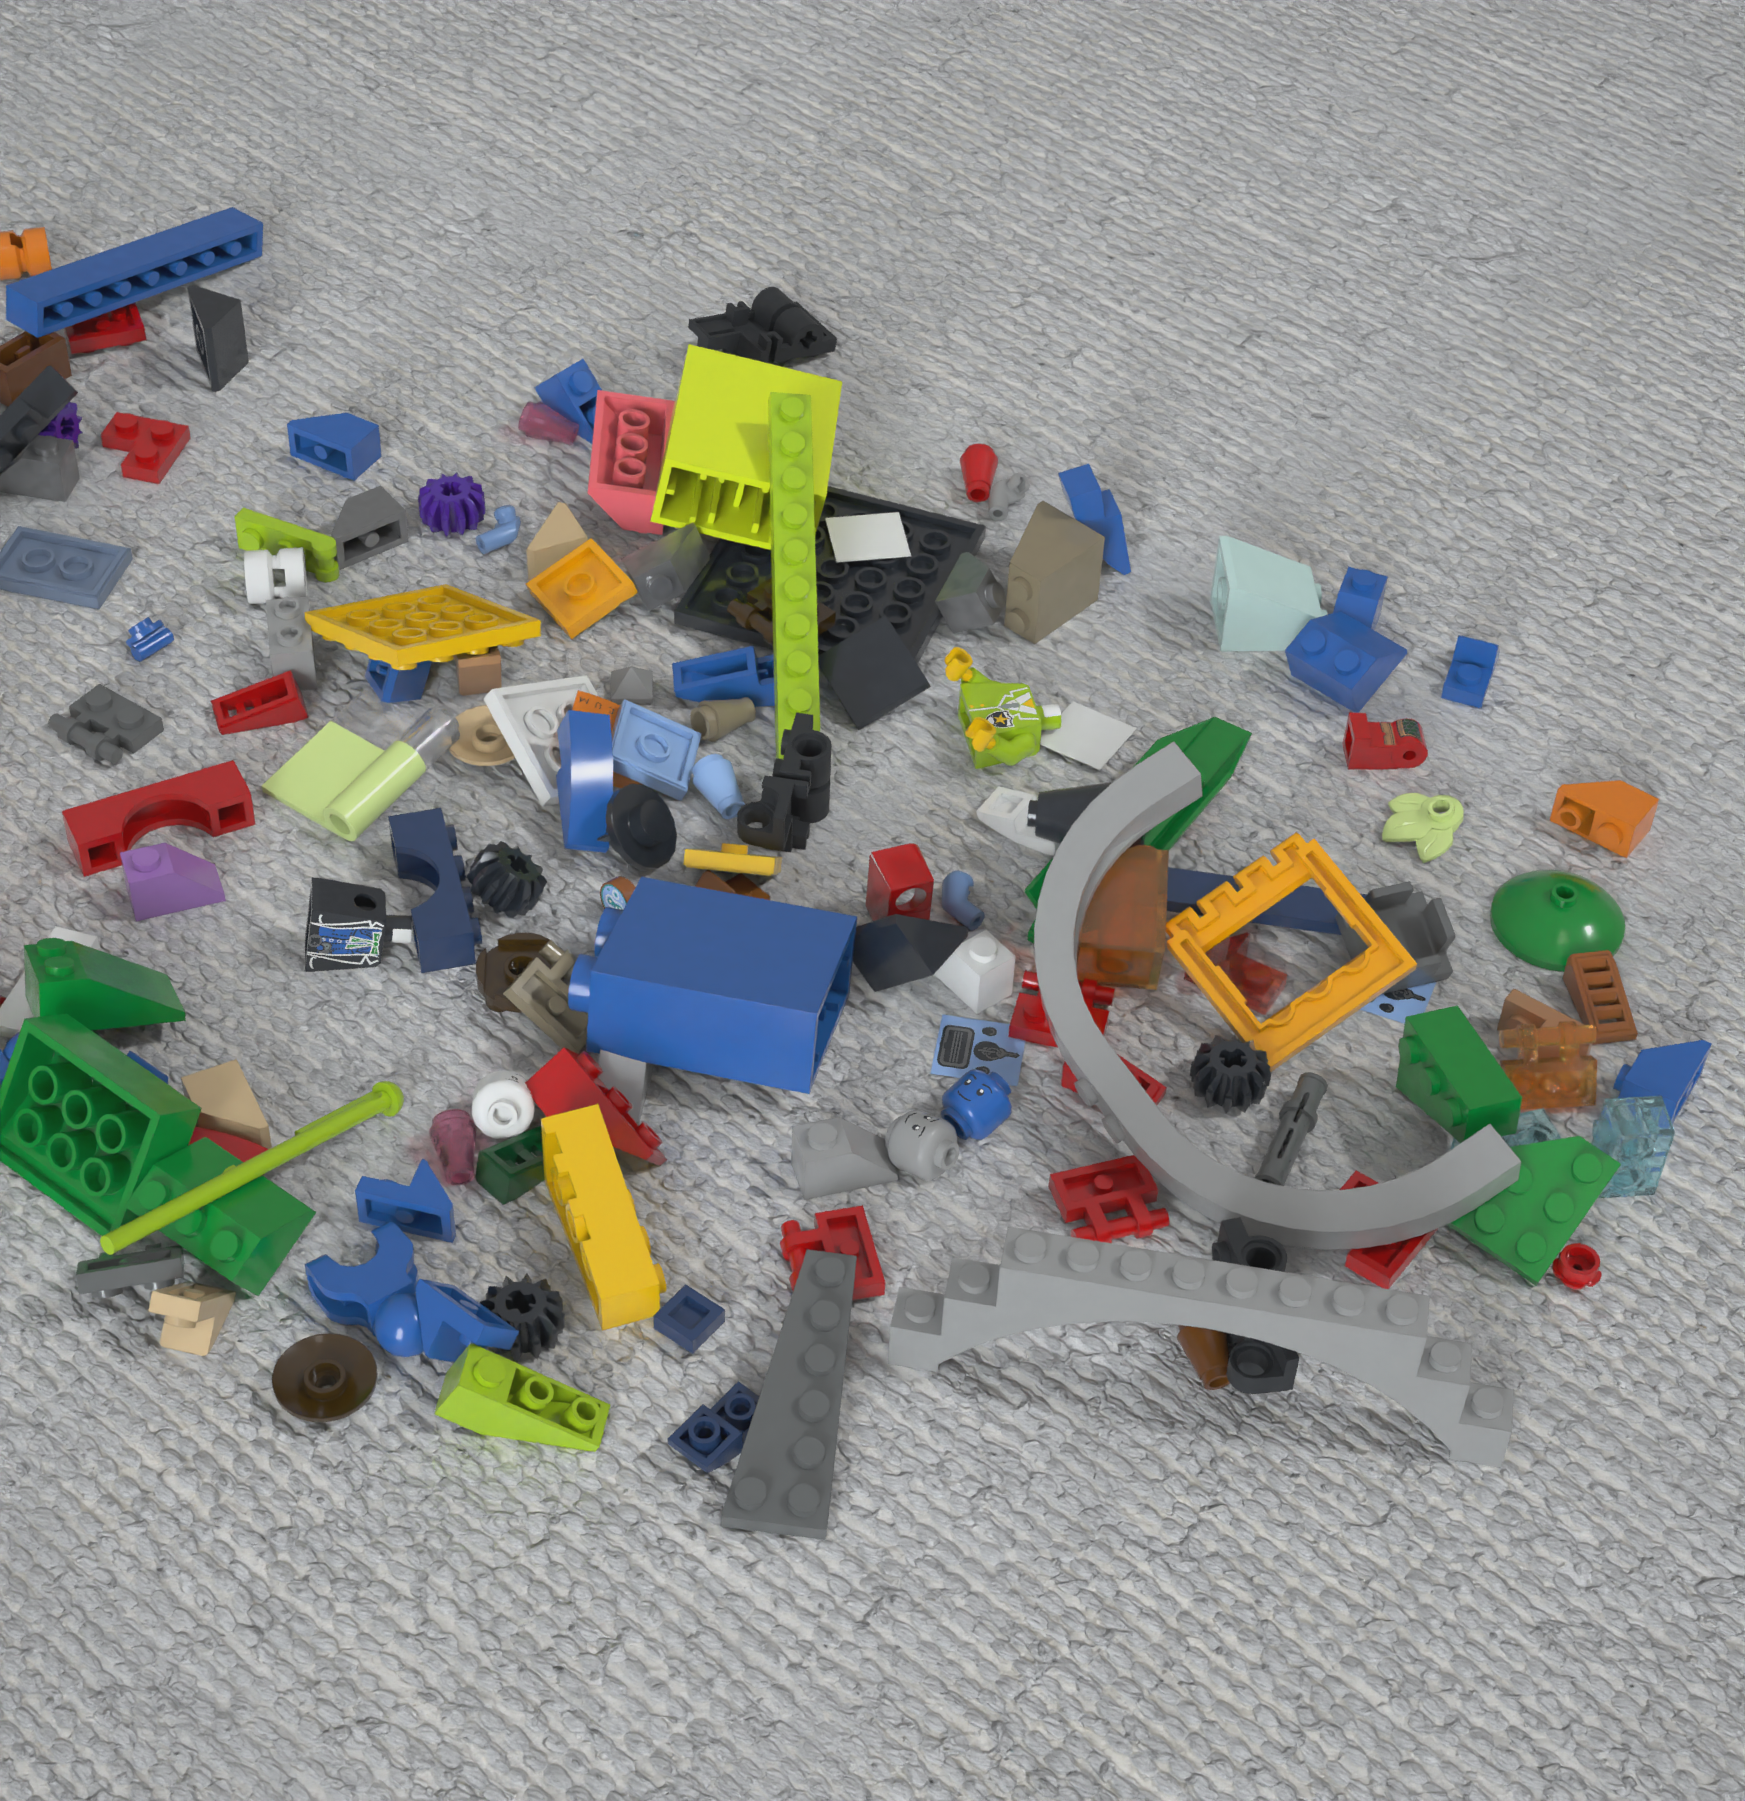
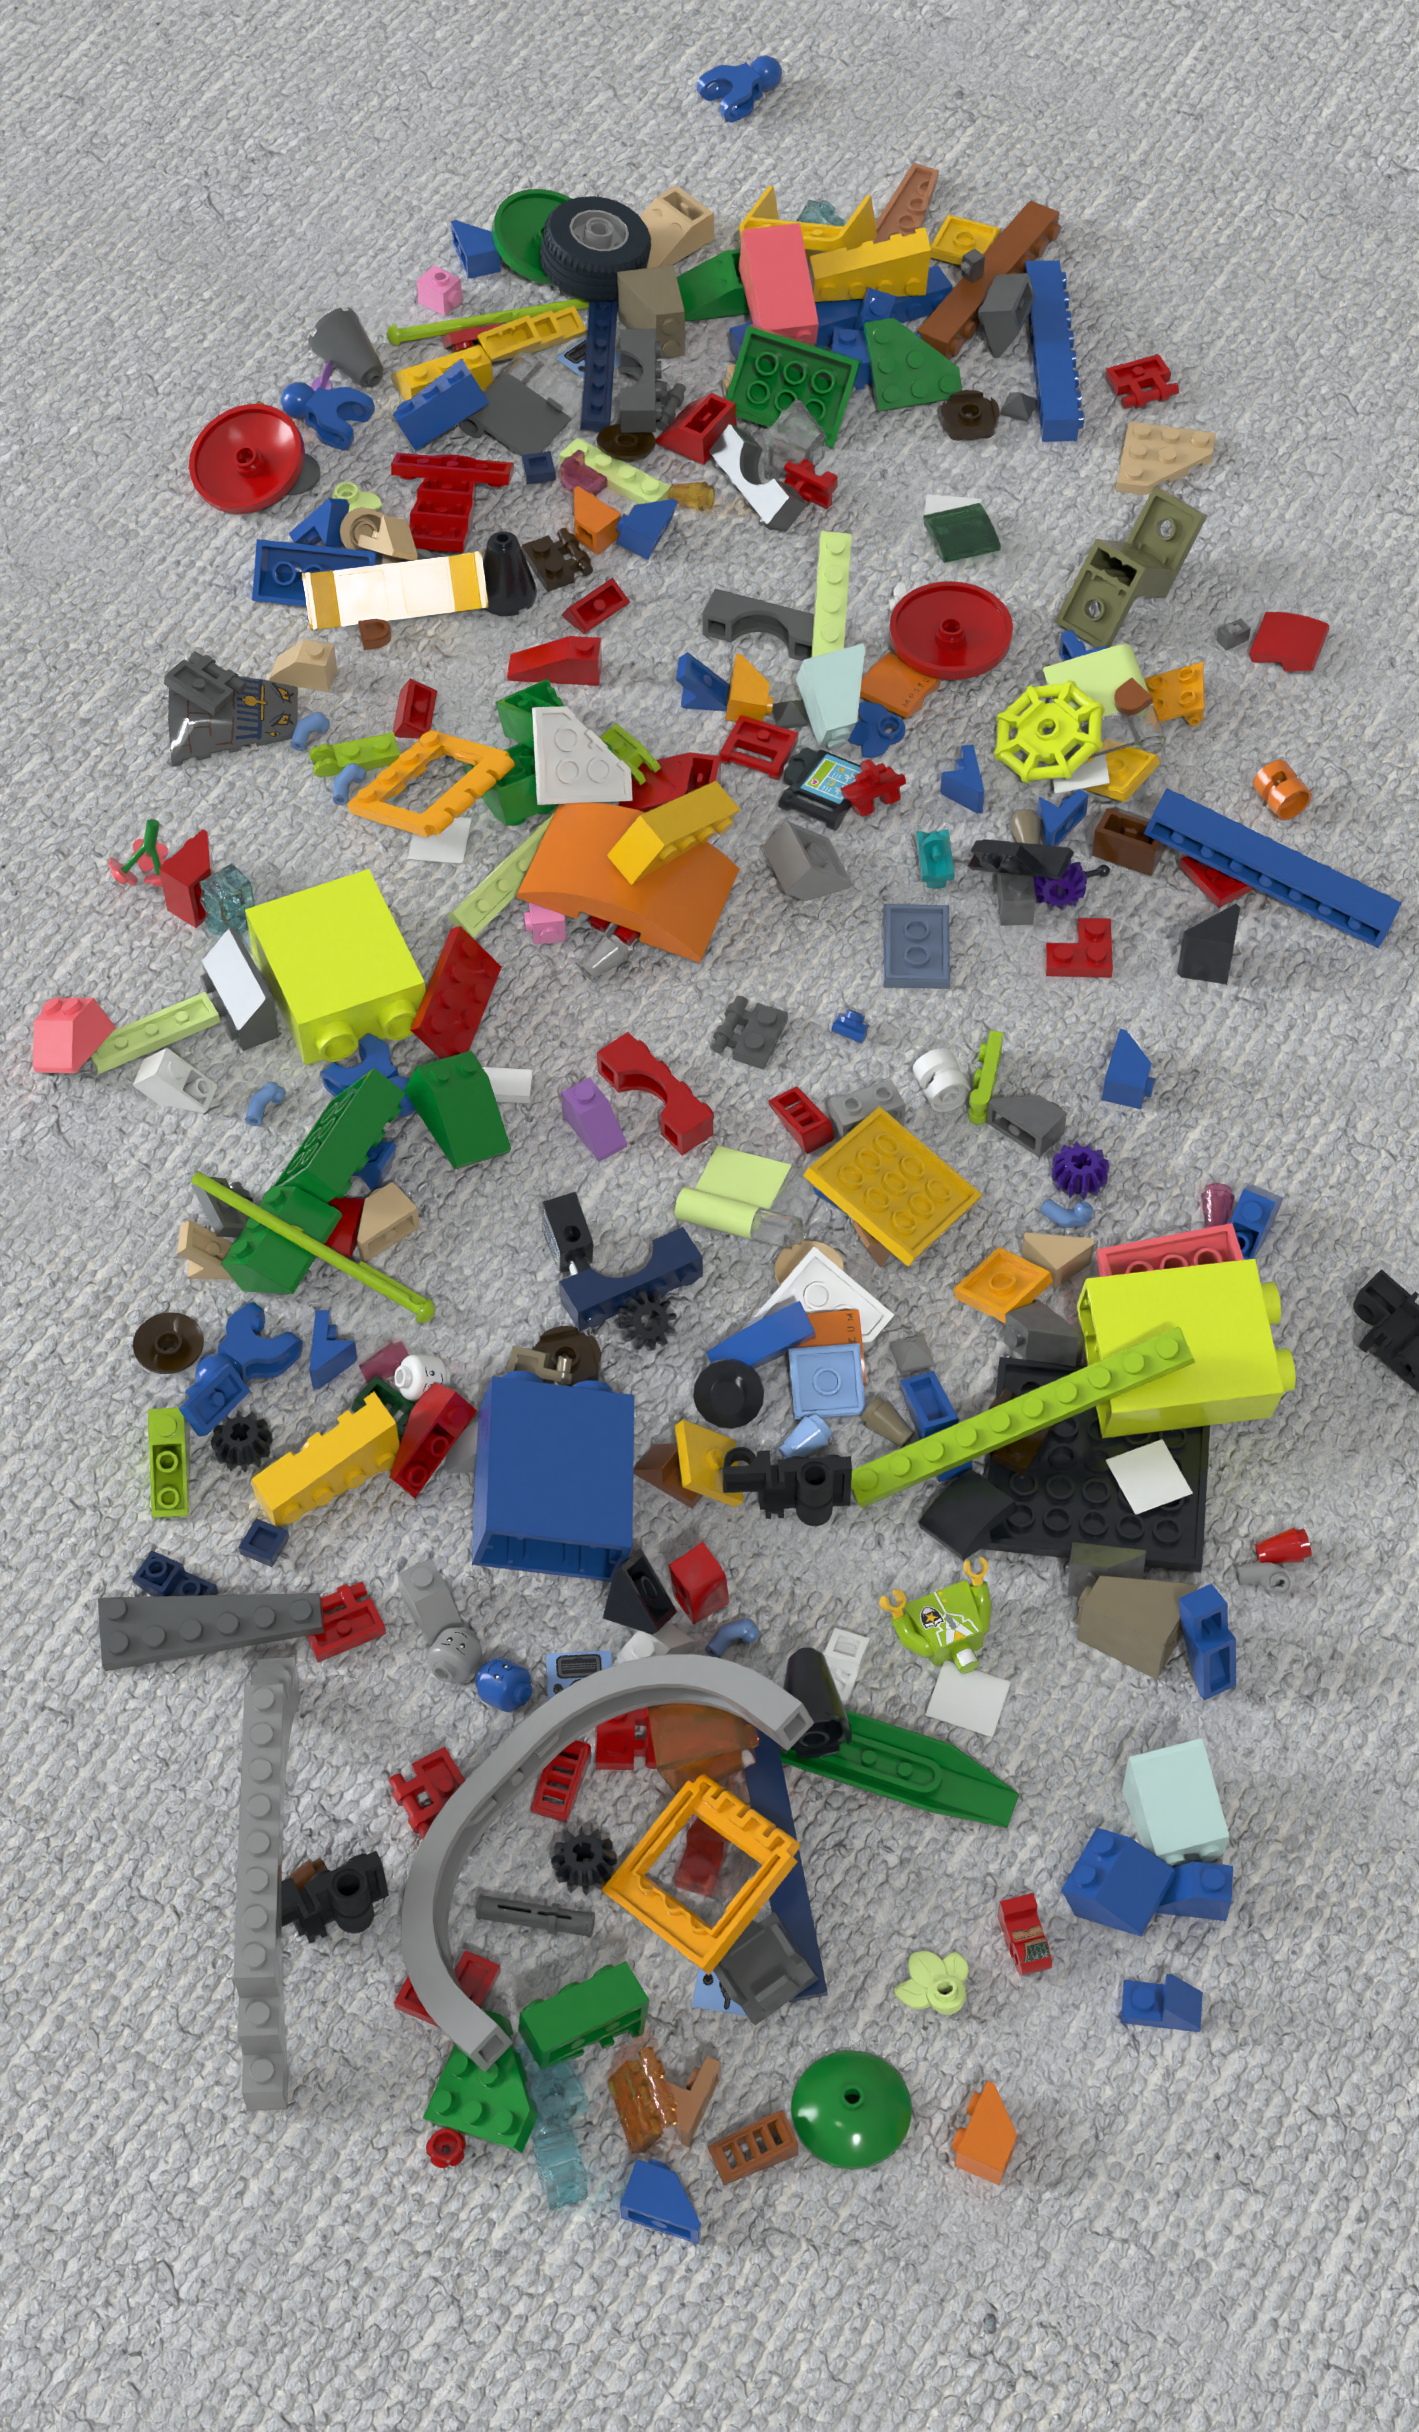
camera: 80 degrees right, 10 degrees up
(616, 892) = (656, 1402): tile -> none

